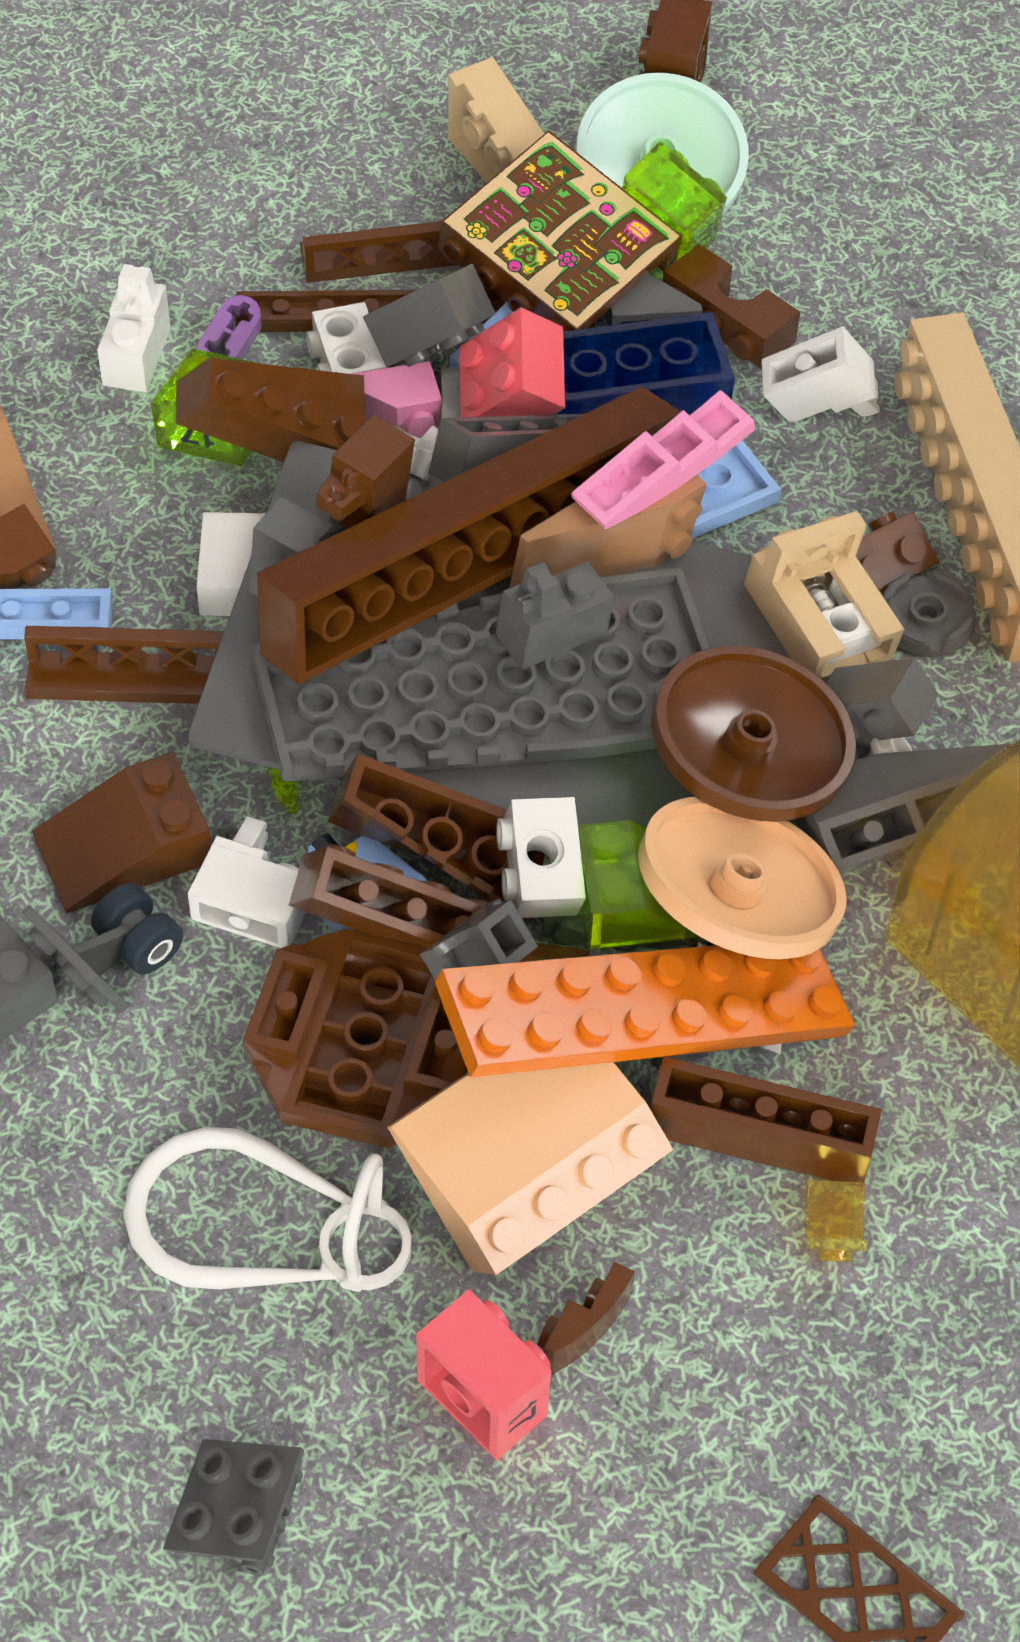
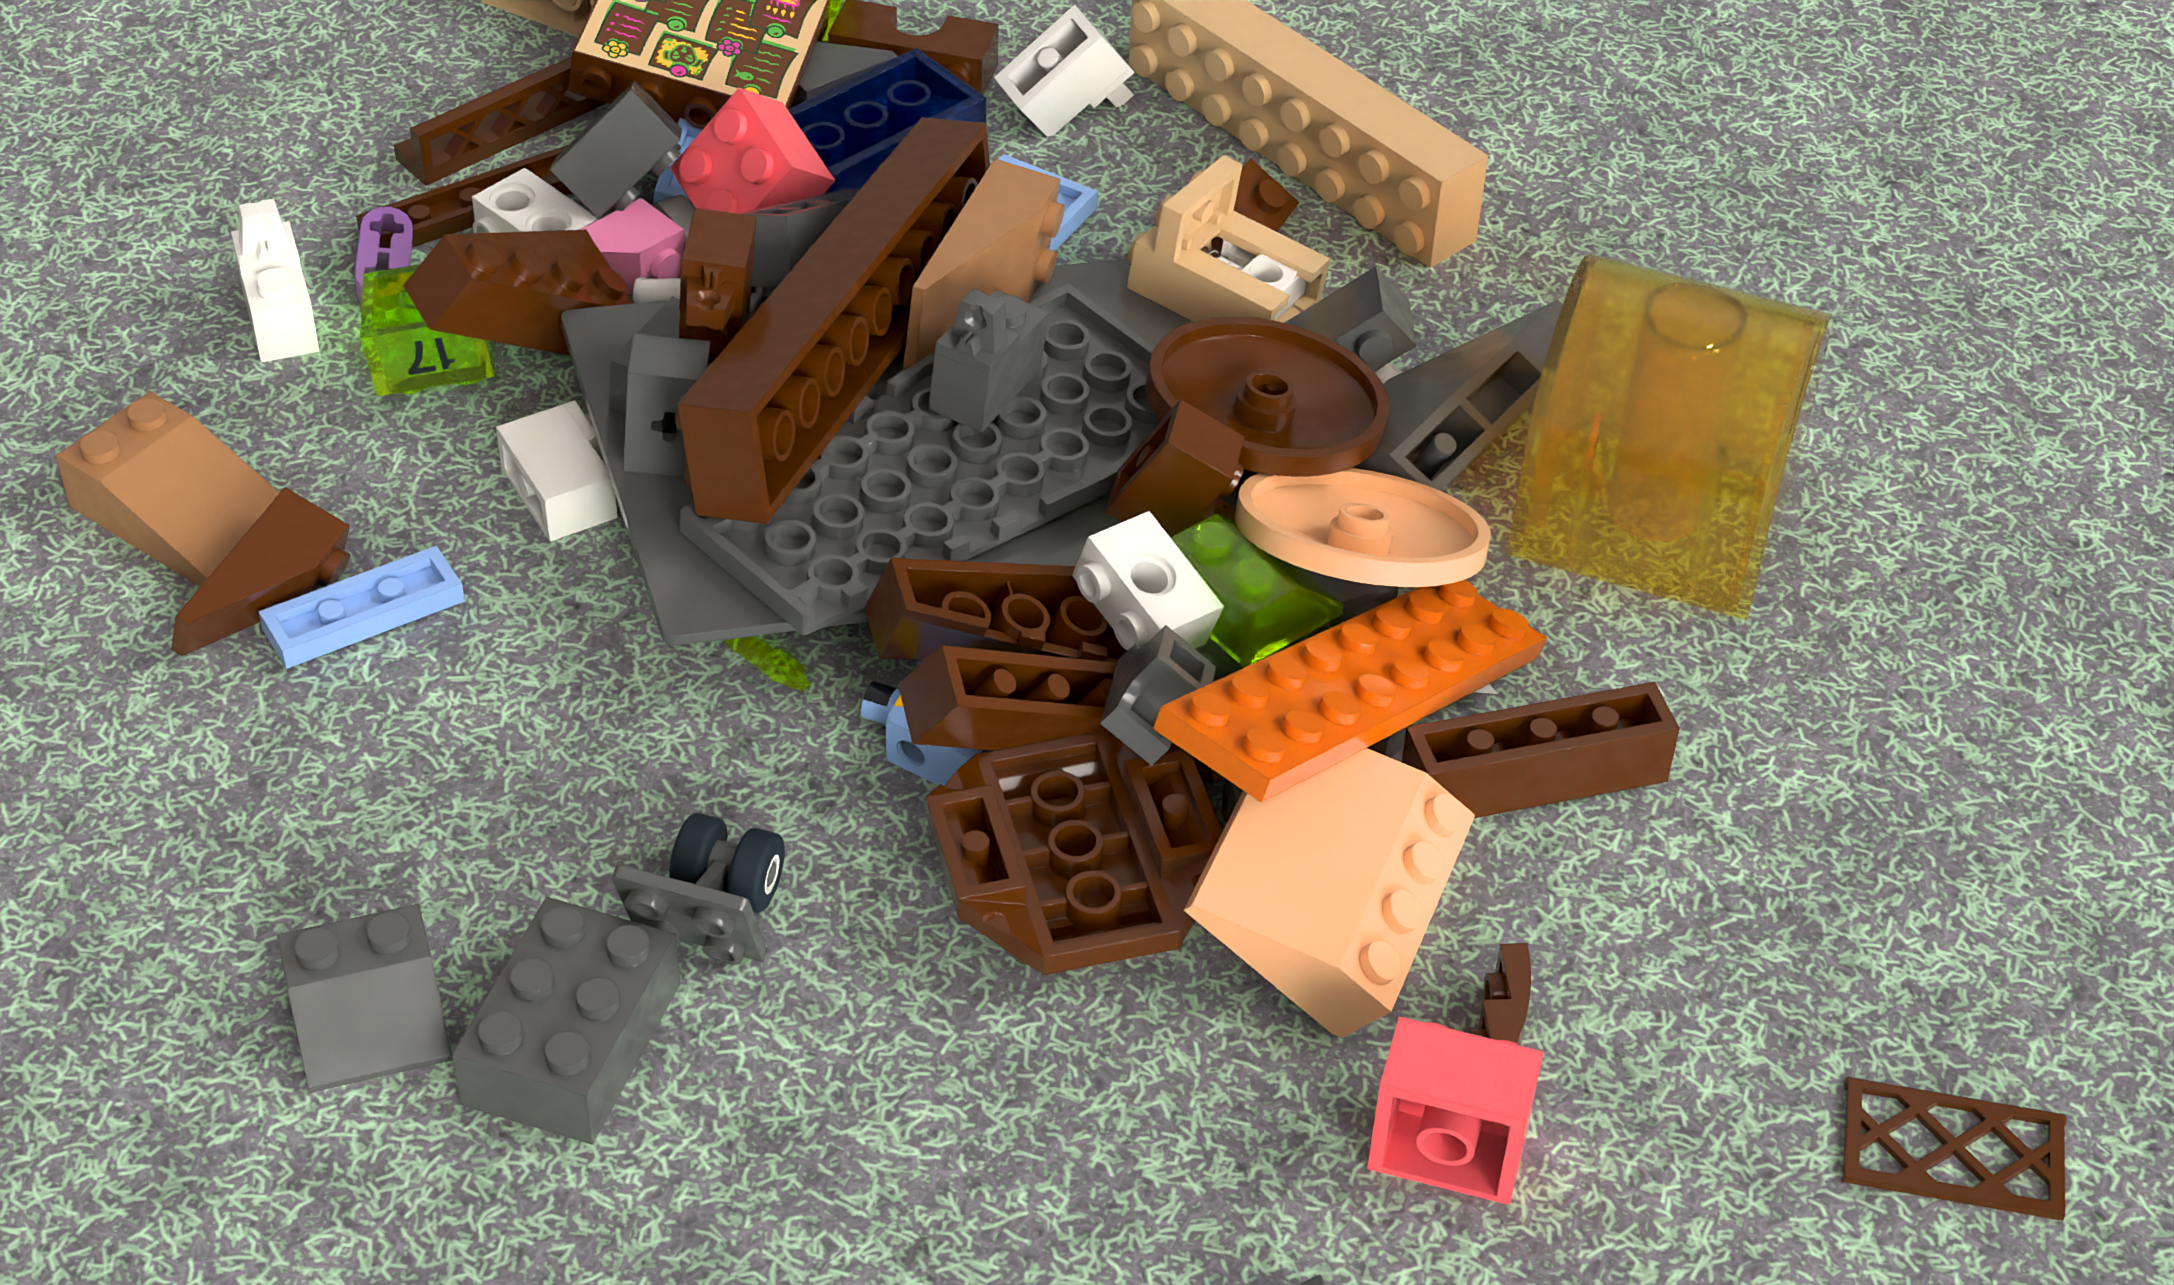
camera: 30 degrees left, 10 degrees down
(122, 674) = (510, 623): reddish brown fence -> none
(125, 831) = (639, 774): reddish brown slope -> none
(211, 1277) = (1042, 1024): white animal -> none
(244, 890) = (827, 776): white hinge -> none
(630, 775) = (1180, 472): none -> reddish brown hinge
(664, 461) = (1010, 165): bright pink slope -> none
(835, 1219) = (1670, 816): clear yellow bracket -> none
(936, 597) = (1338, 236): dark grey plate -> none

